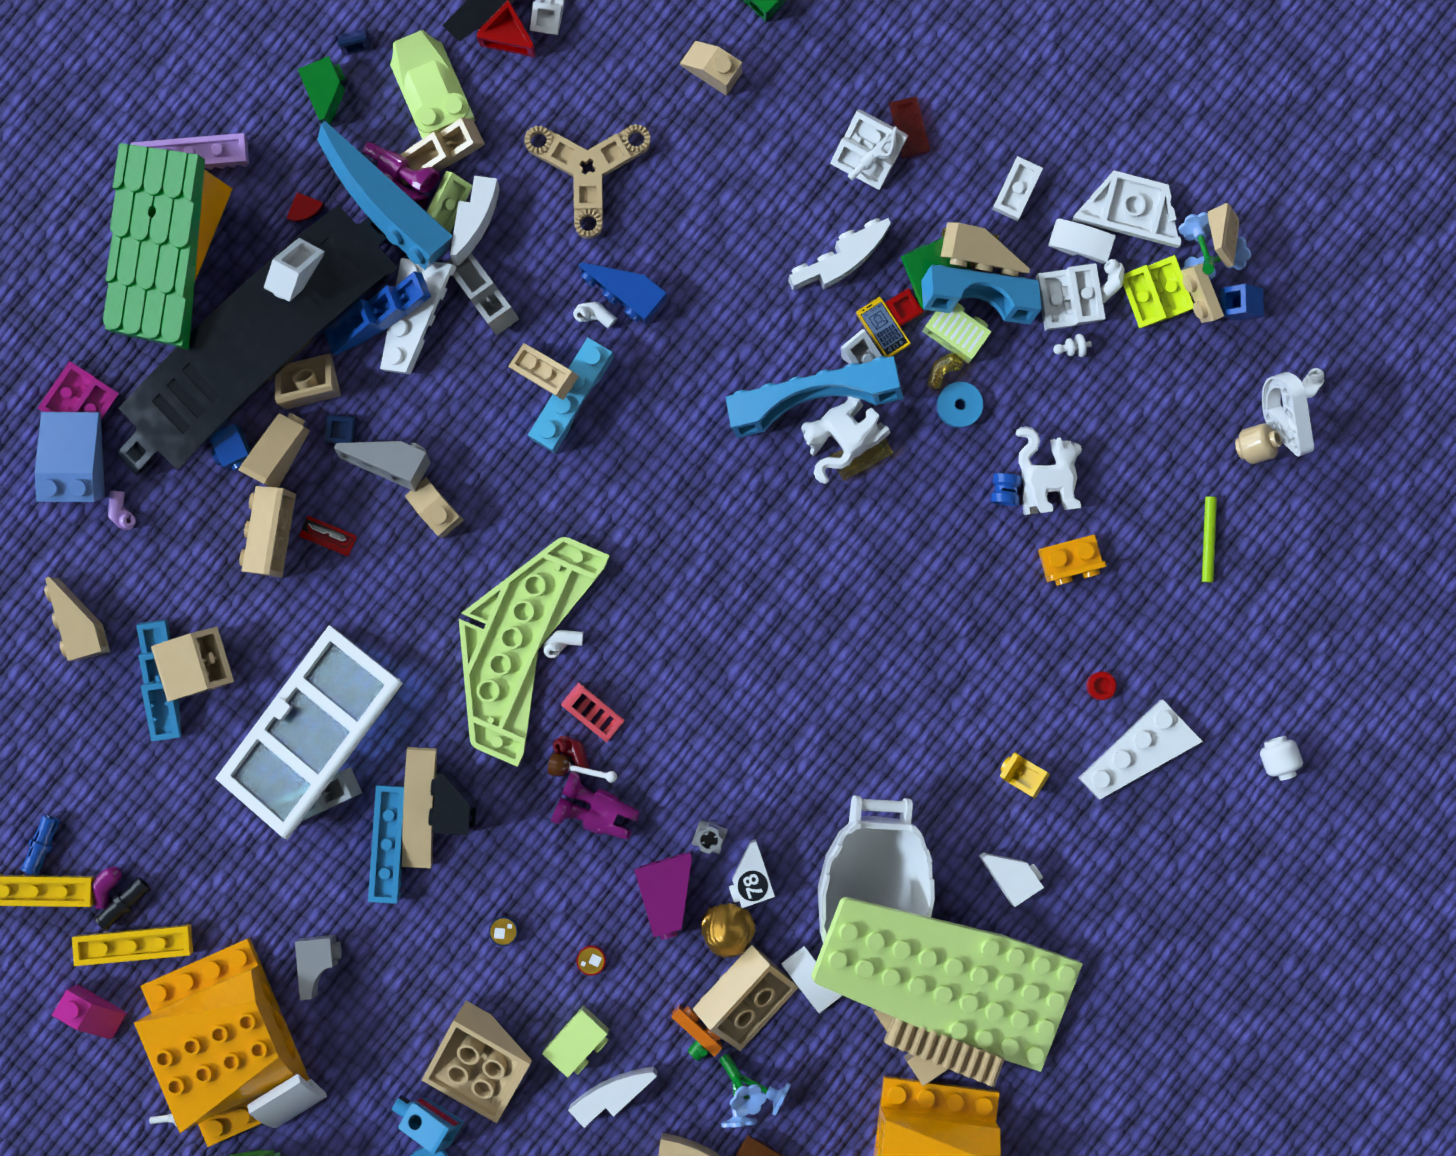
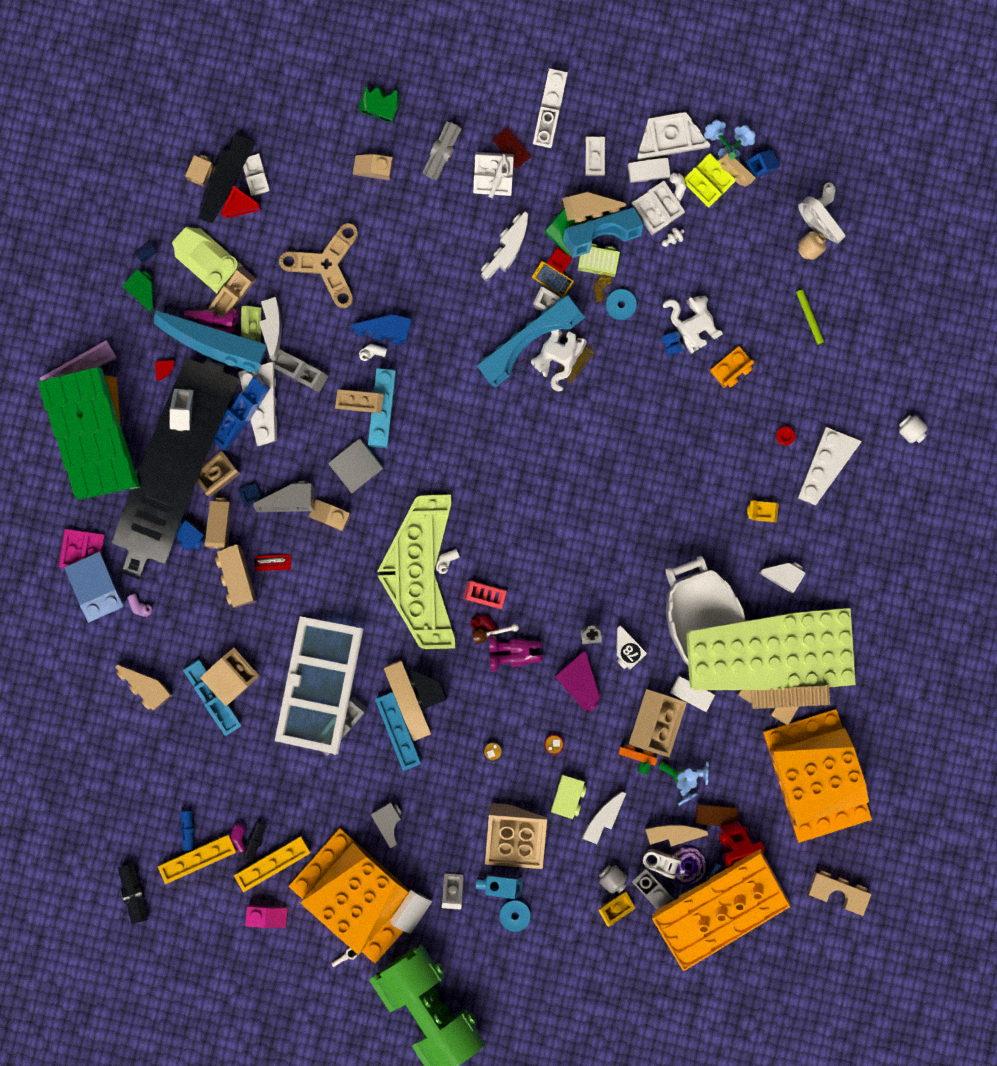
camera: 25 degrees left, 0 degrees up
(358, 1099) = (452, 891): none -> white slope
(500, 457) = (356, 465): none -> light grey slope
(727, 929) = (627, 687): pearl gold hair -> none
(814, 87) = (442, 151): none -> light grey piece
(987, 95) = (550, 108): none -> white slope
(1224, 231) = (732, 127): tan slope -> none

